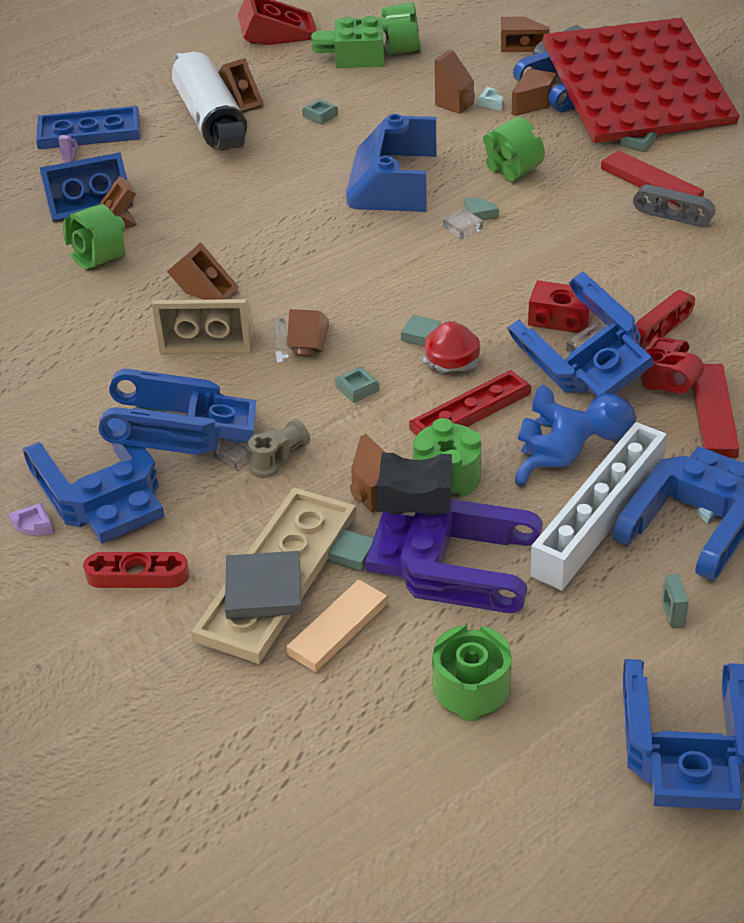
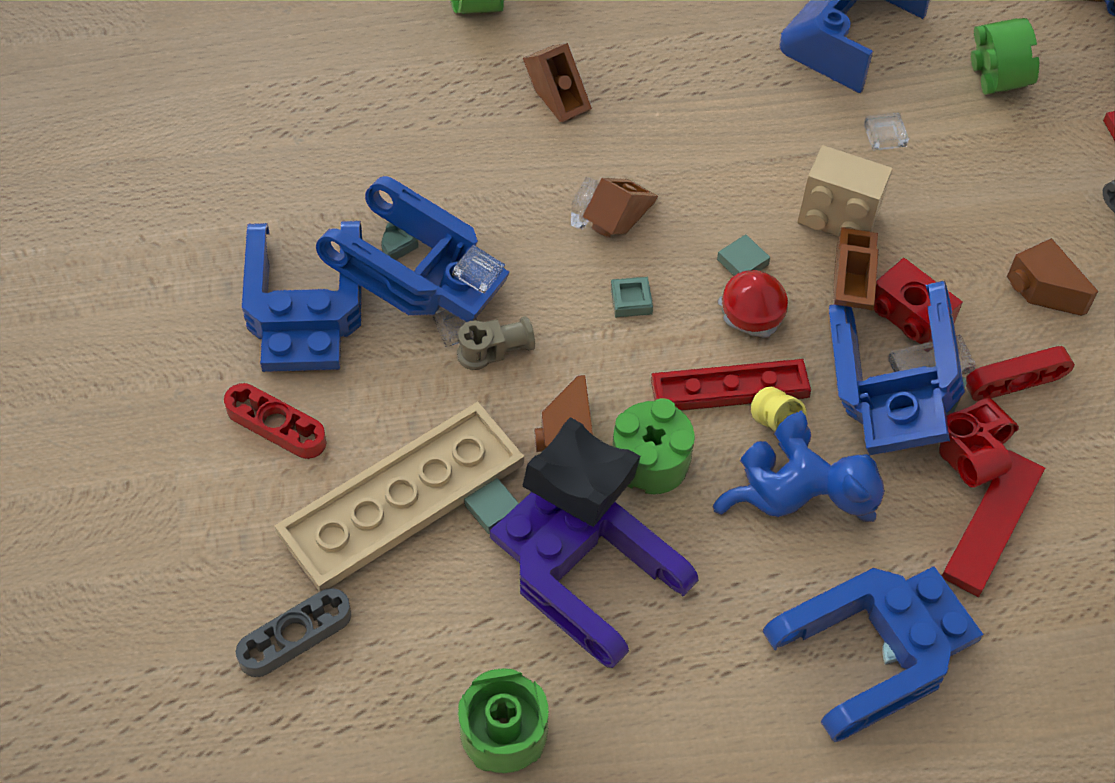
camera: 25 degrees right, 15 degrees up
(31, 520) = (217, 310): lavender tile -> none
(203, 326) = (515, 150): tan slope -> none
(235, 402) = (478, 269): none -> clear tile
(257, 713) = (299, 614): none -> dark grey beam
(263, 584) = (370, 509): dark grey tile -> none
(336, 625) = (421, 588): light nougat tile -> none
(468, 261) = (843, 192): none -> tan brick
(481, 208) = (920, 119): sand green tile -> none
(507, 299) = (855, 269): none -> dark orange slope
(518, 402) = (773, 406): none -> light yellow wheel
(595, 507) = (769, 588): white brick -> none
(642, 260) = (1051, 279): none -> dark orange slope
(675, 601) = (770, 748): sand green tile -> none

